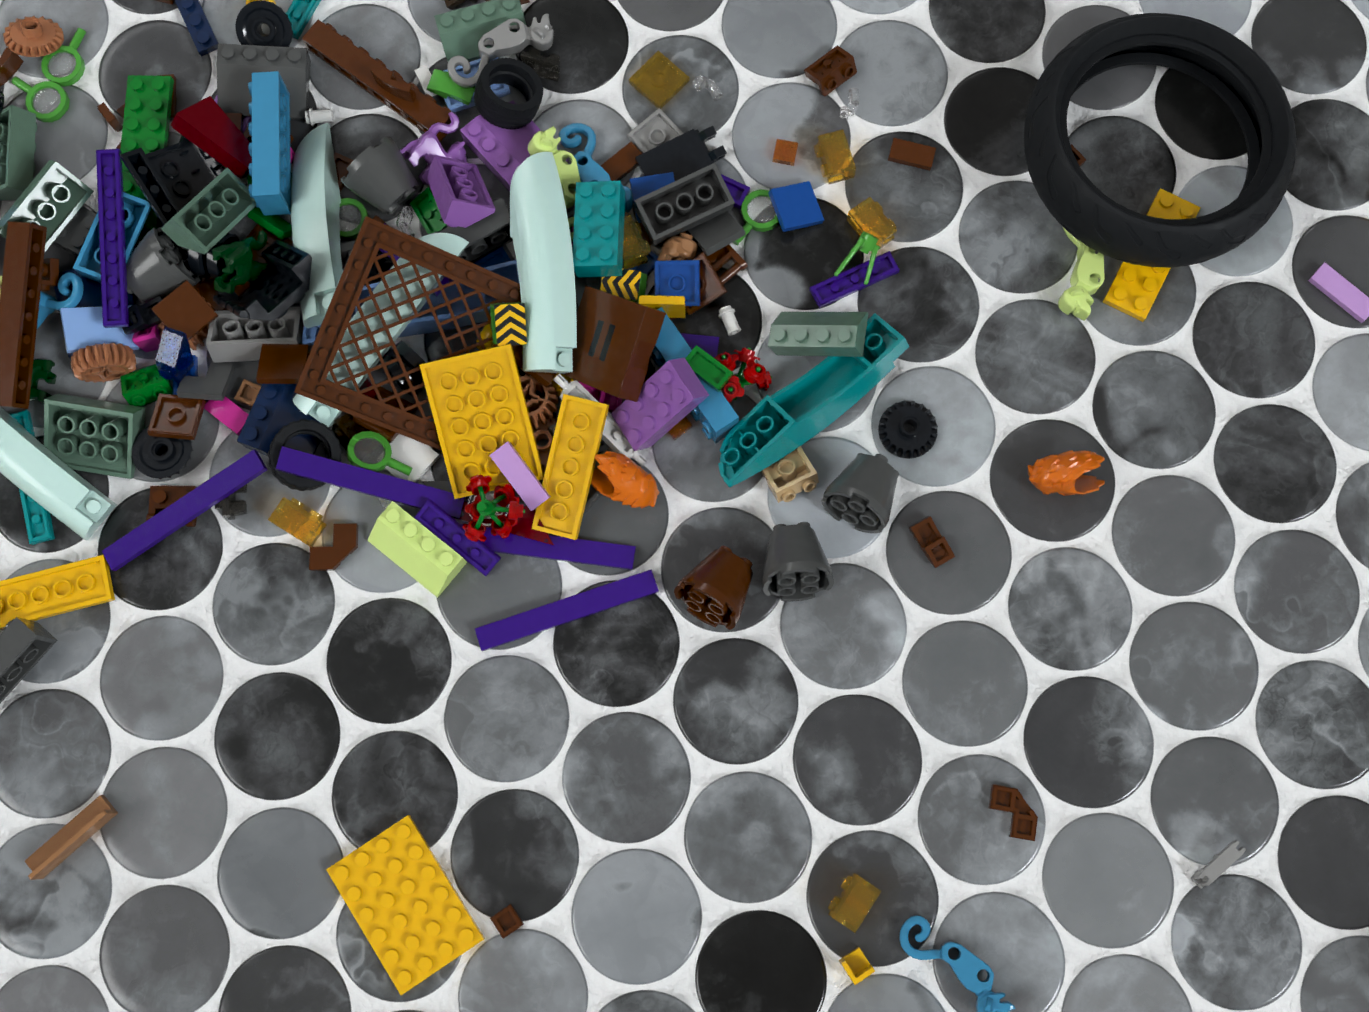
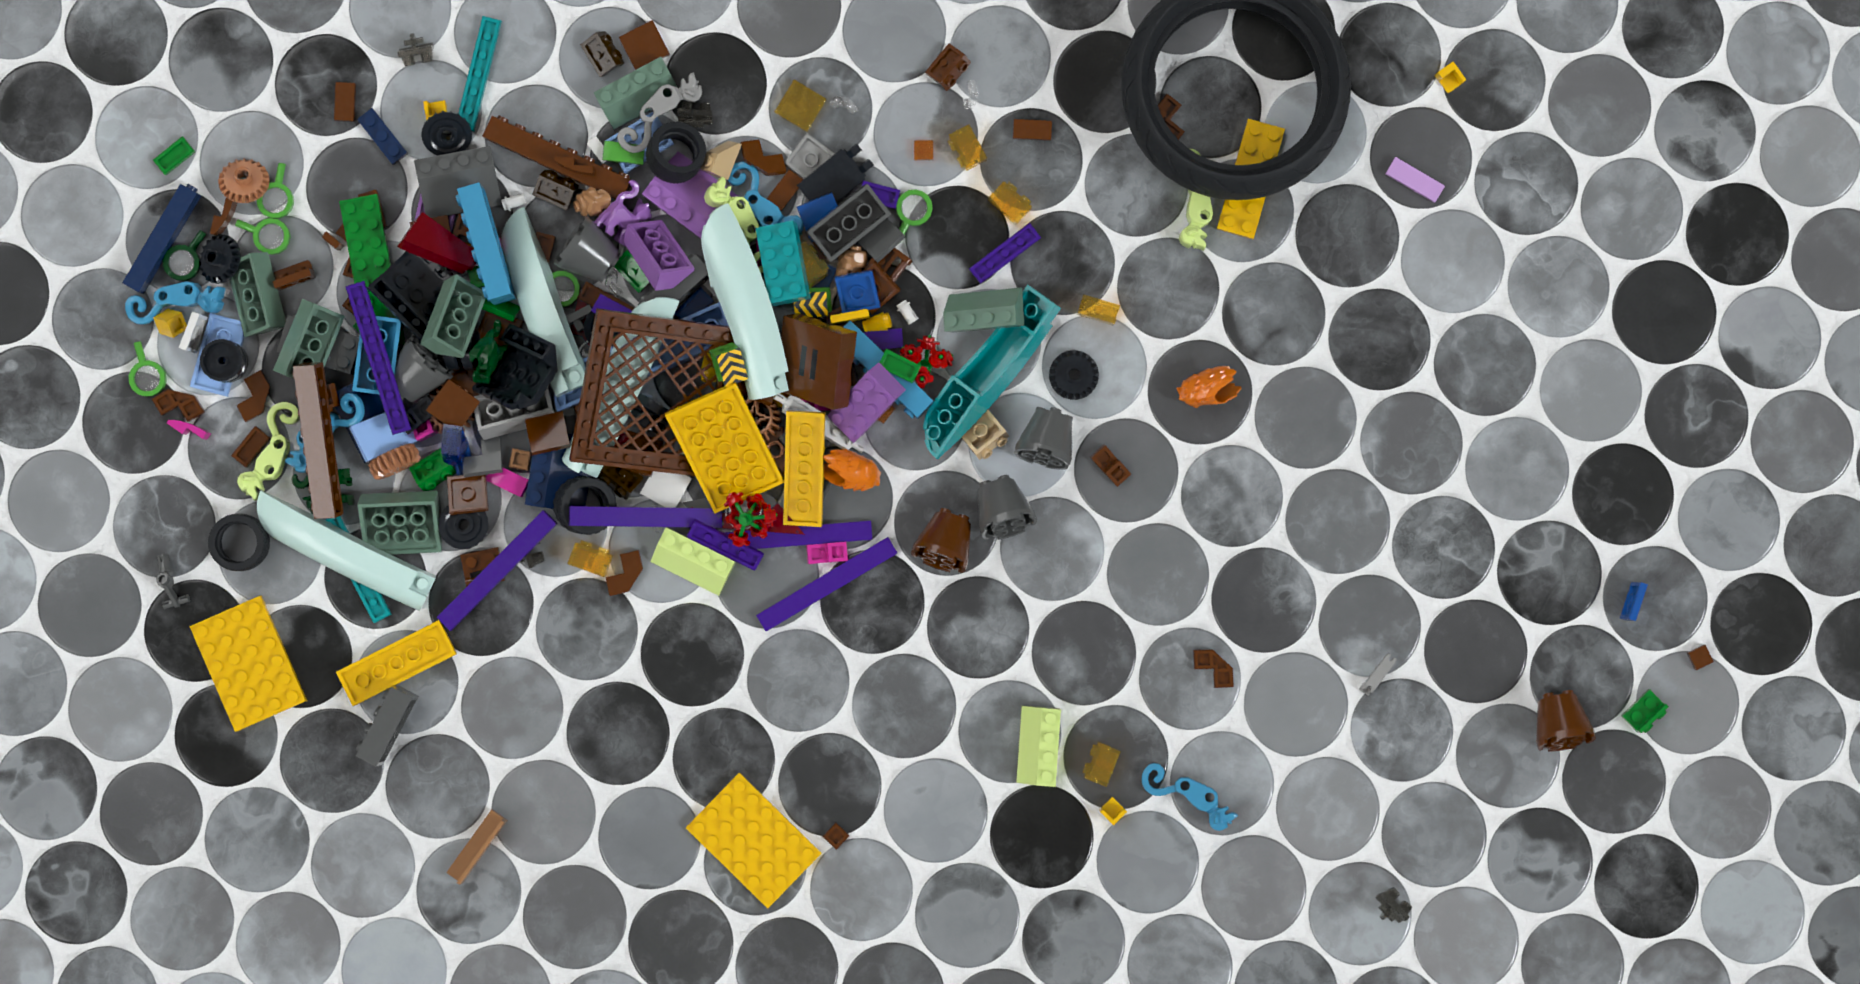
camera: 15 degrees left, 10 degrees up
(55, 145) = (293, 275): none -> reddish brown bracket
(367, 112) = (555, 189): none -> dark brown bracket
(373, 453) = (638, 490): bright green piece -> none
(403, 128) = (592, 202): none -> medium nougat head
(520, 476) = (765, 485): lavender tile -> none
(557, 115) = (721, 159): none -> tan slope
(575, 573) = (826, 552): none -> dark pink slope
(609, 132) = (768, 165): none -> reddish brown tile
(695, 325) = (879, 322): none -> yellow cone
(780, 863) = (1038, 746): none -> yellowish green slope
(796, 206) = (942, 199): blue tile -> none
(865, 244) = (1008, 225): bright green plant -> none
(951, 360) = (1098, 310): none -> clear yellow brick

